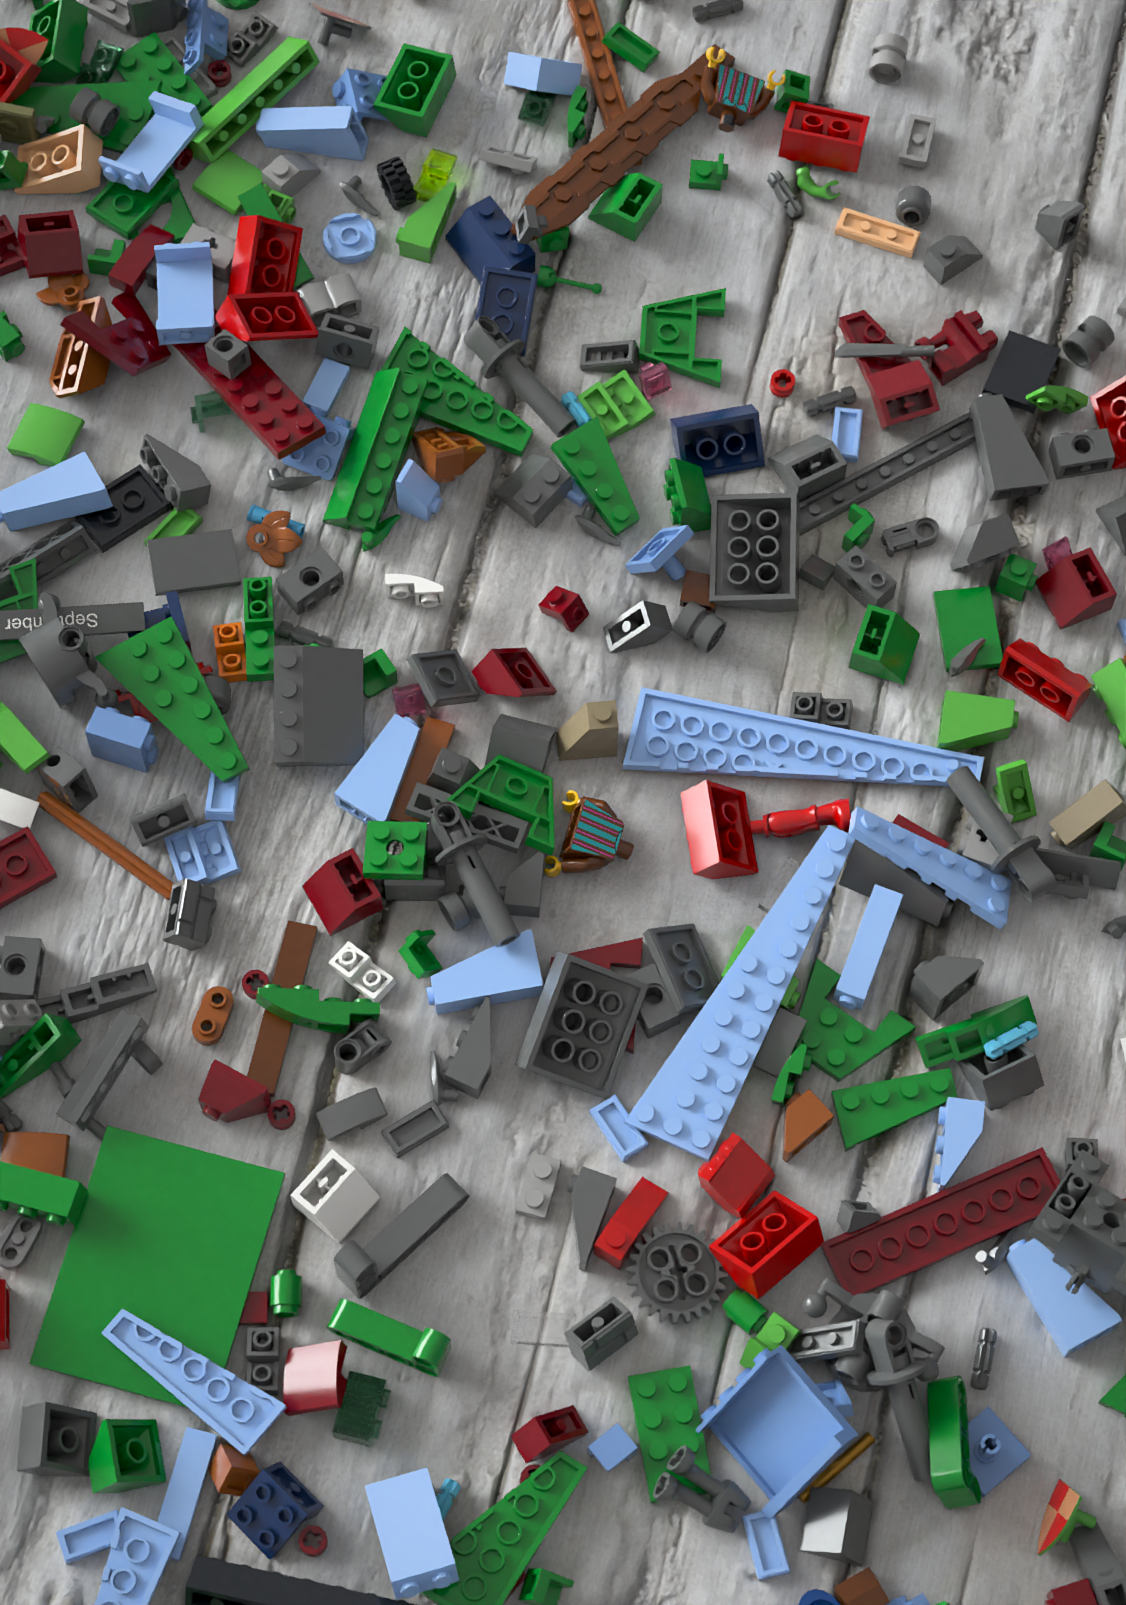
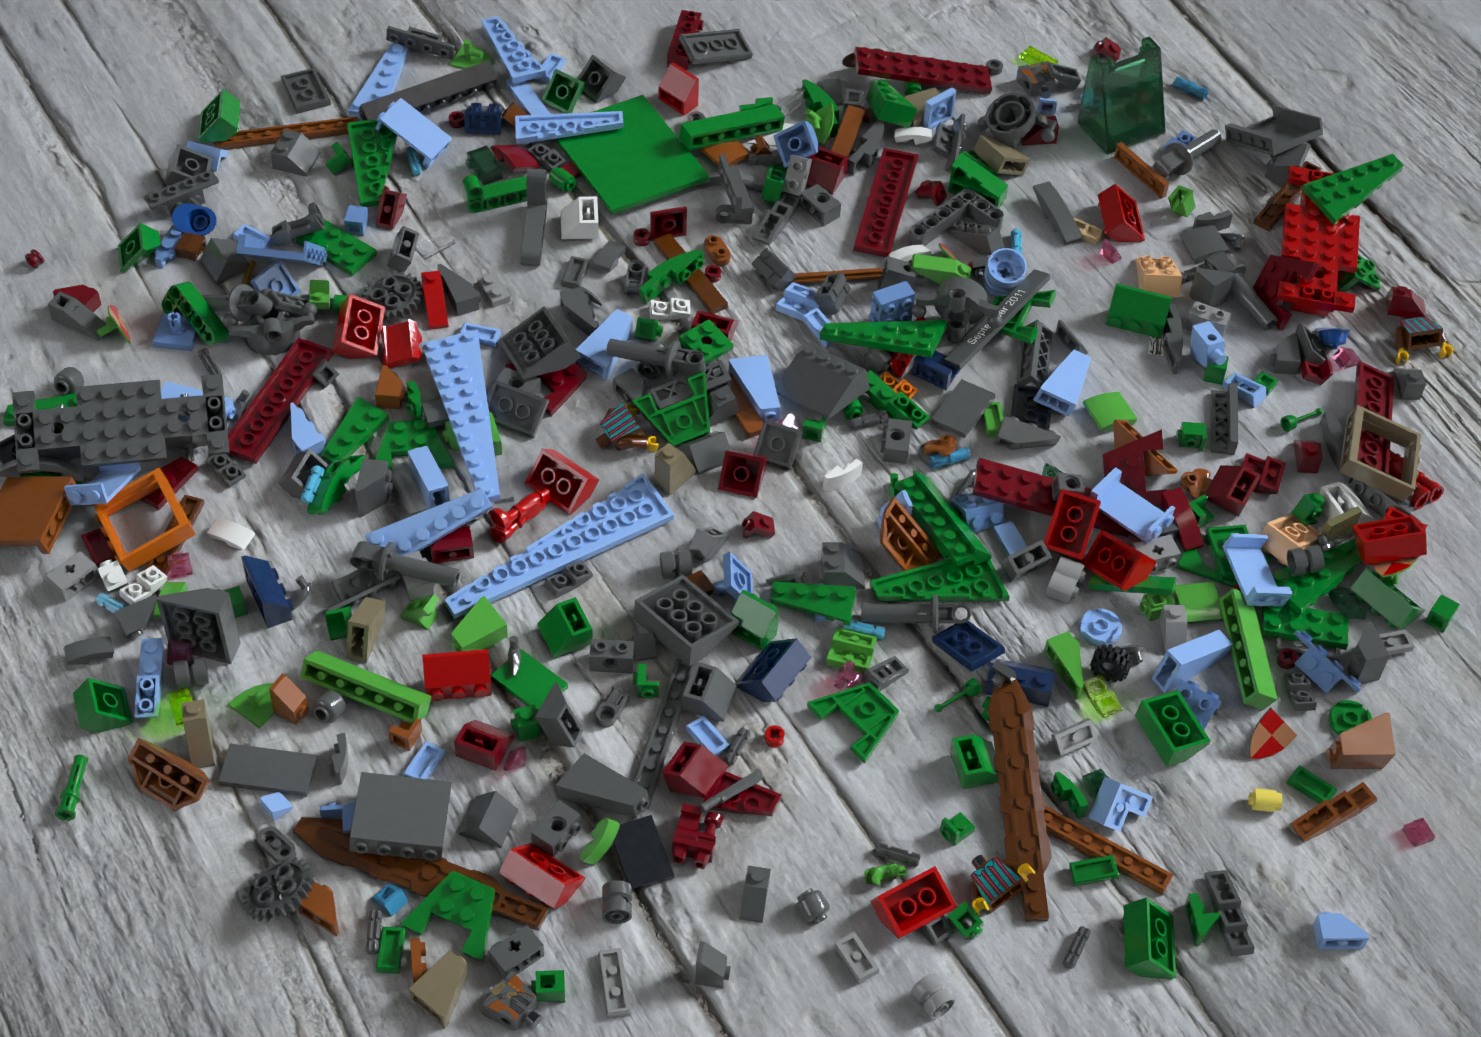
camera: 135 degrees right, 15 degrees down
(877, 232) = (818, 877): light nougat tile -> none

